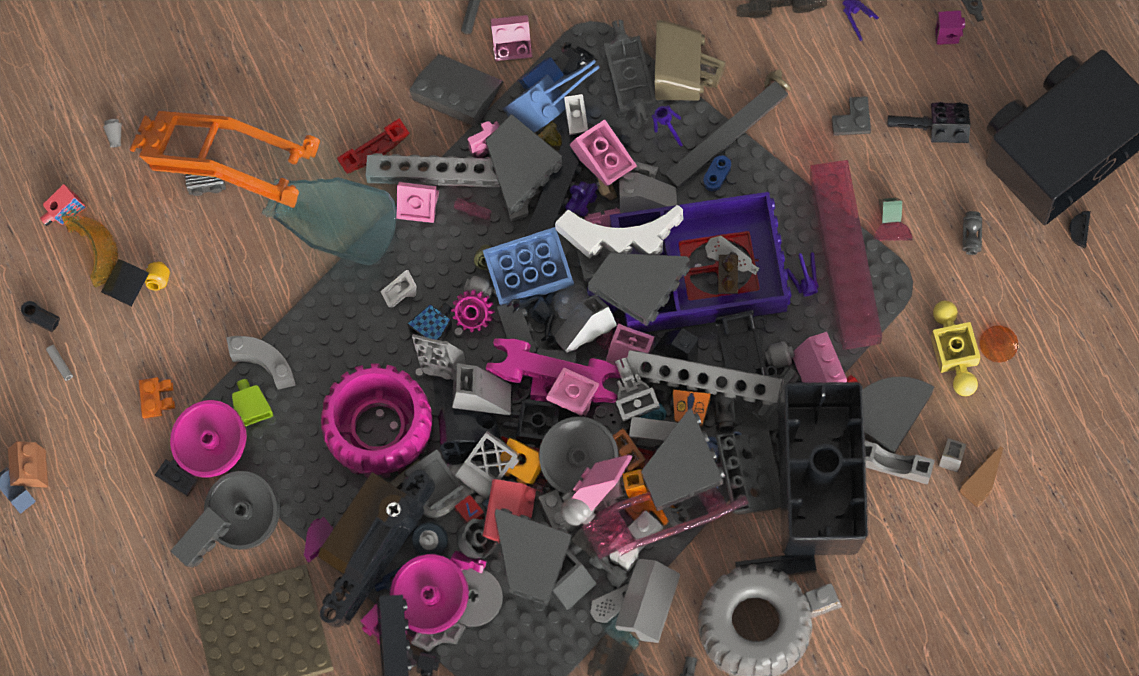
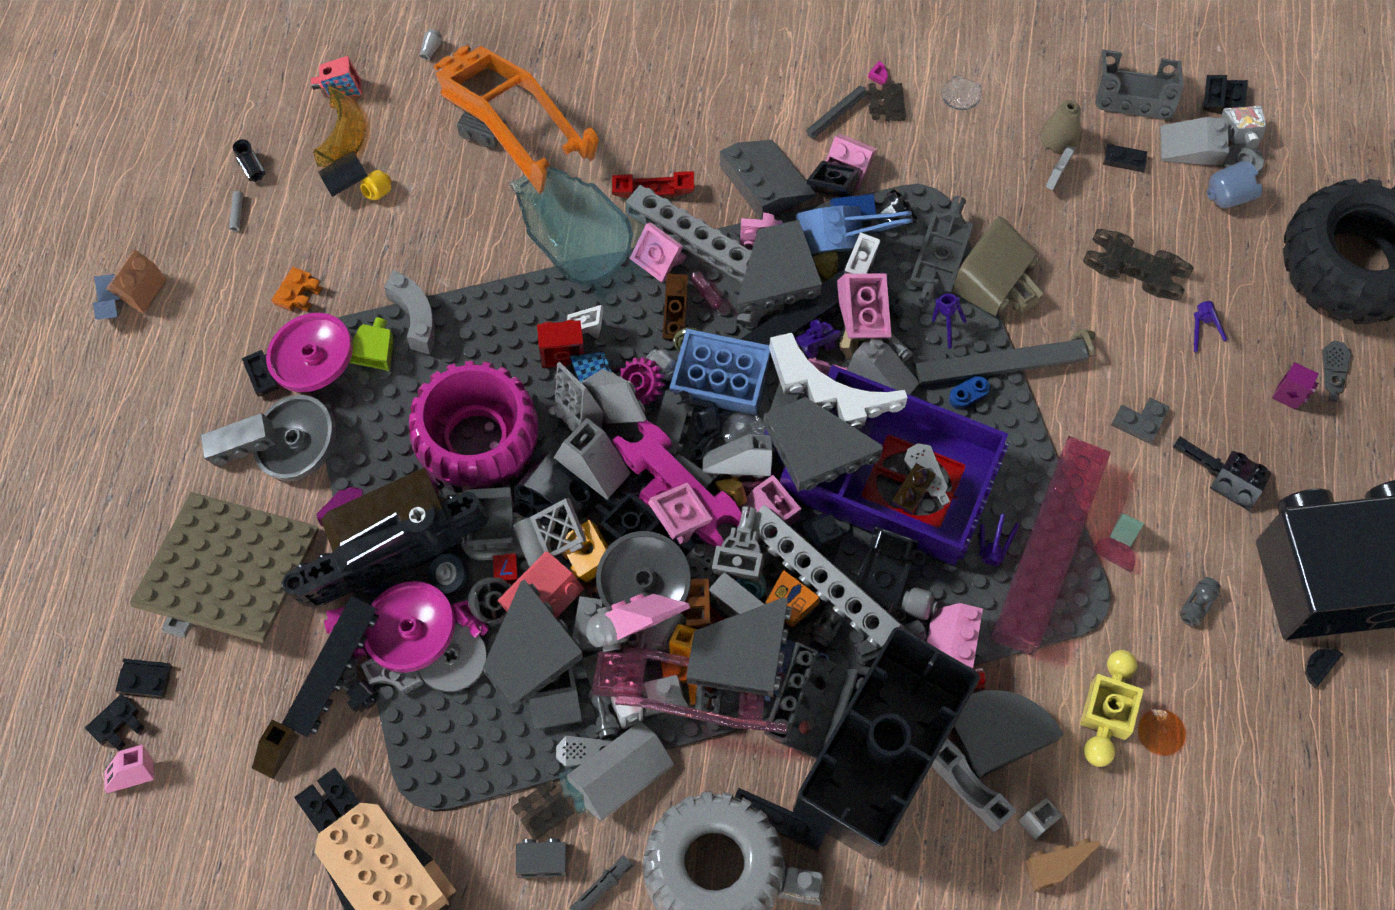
camera: 25 degrees right, 5 degrees down
(393, 317) = (559, 341): none -> red brick
(457, 235) = (675, 304): none -> reddish brown slope
(466, 335) = (615, 397): none -> light grey slope
(511, 59) = (834, 179): none -> black slope
(593, 350) = (732, 488): none -> pearl gold leg

